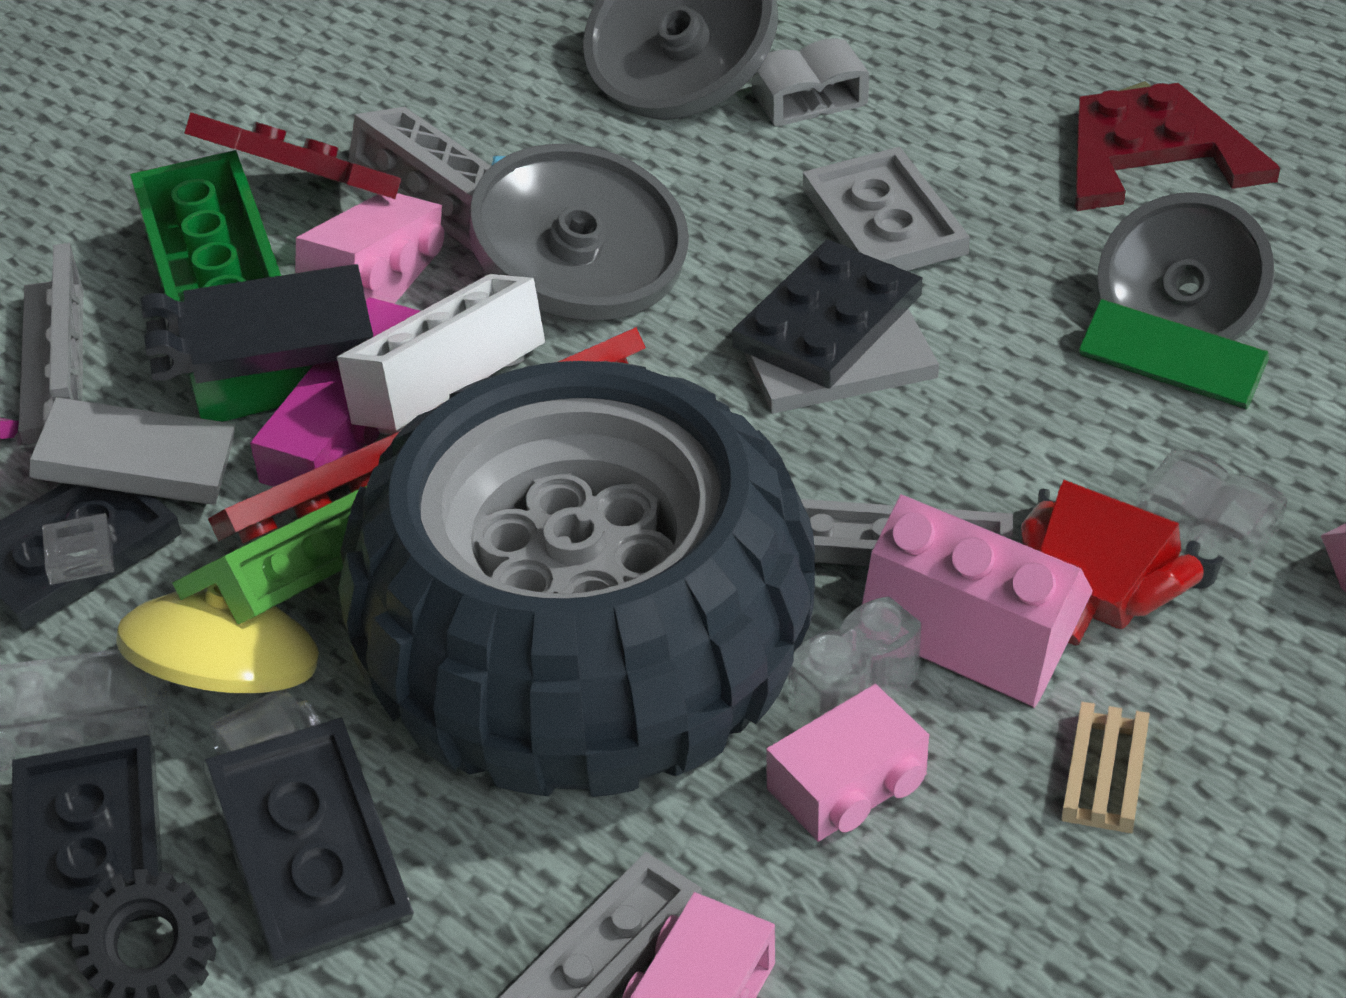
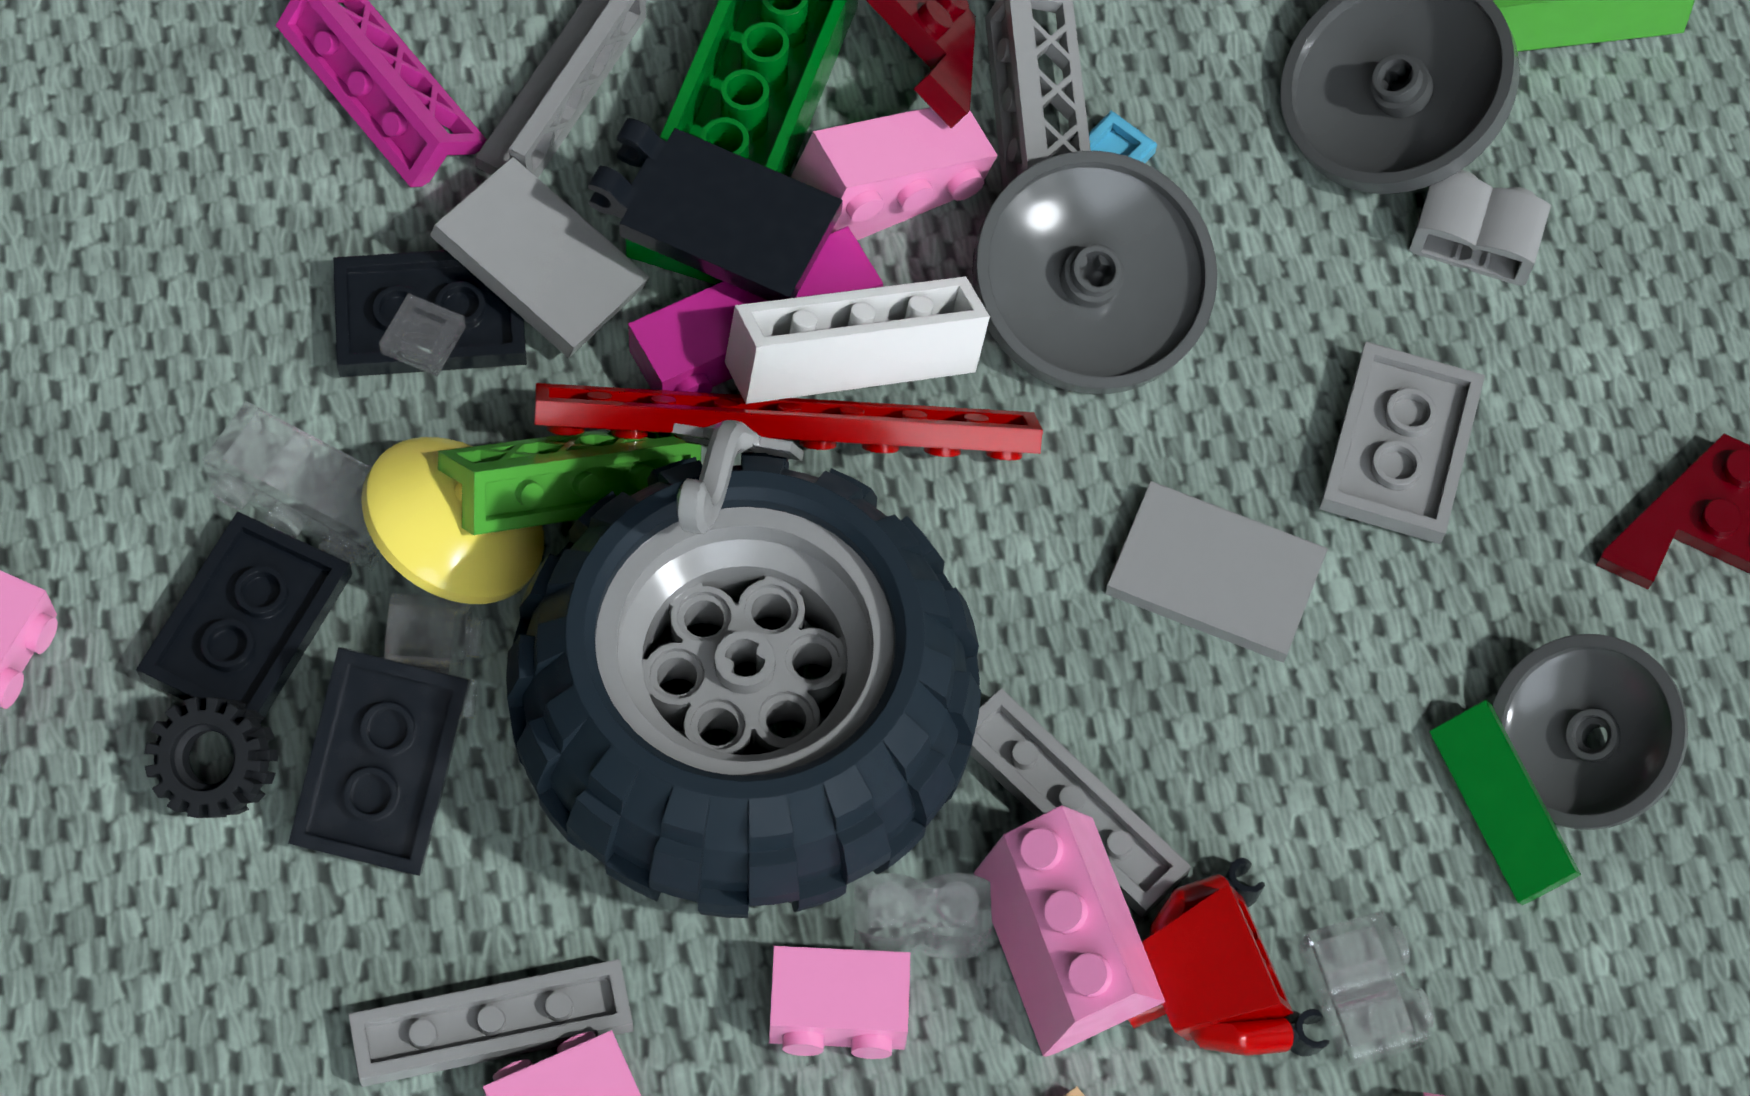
camera: 30 degrees right, 20 degrees up
(442, 388) = (702, 499): none -> light grey piece
(827, 313) = (1236, 527): black plate -> none

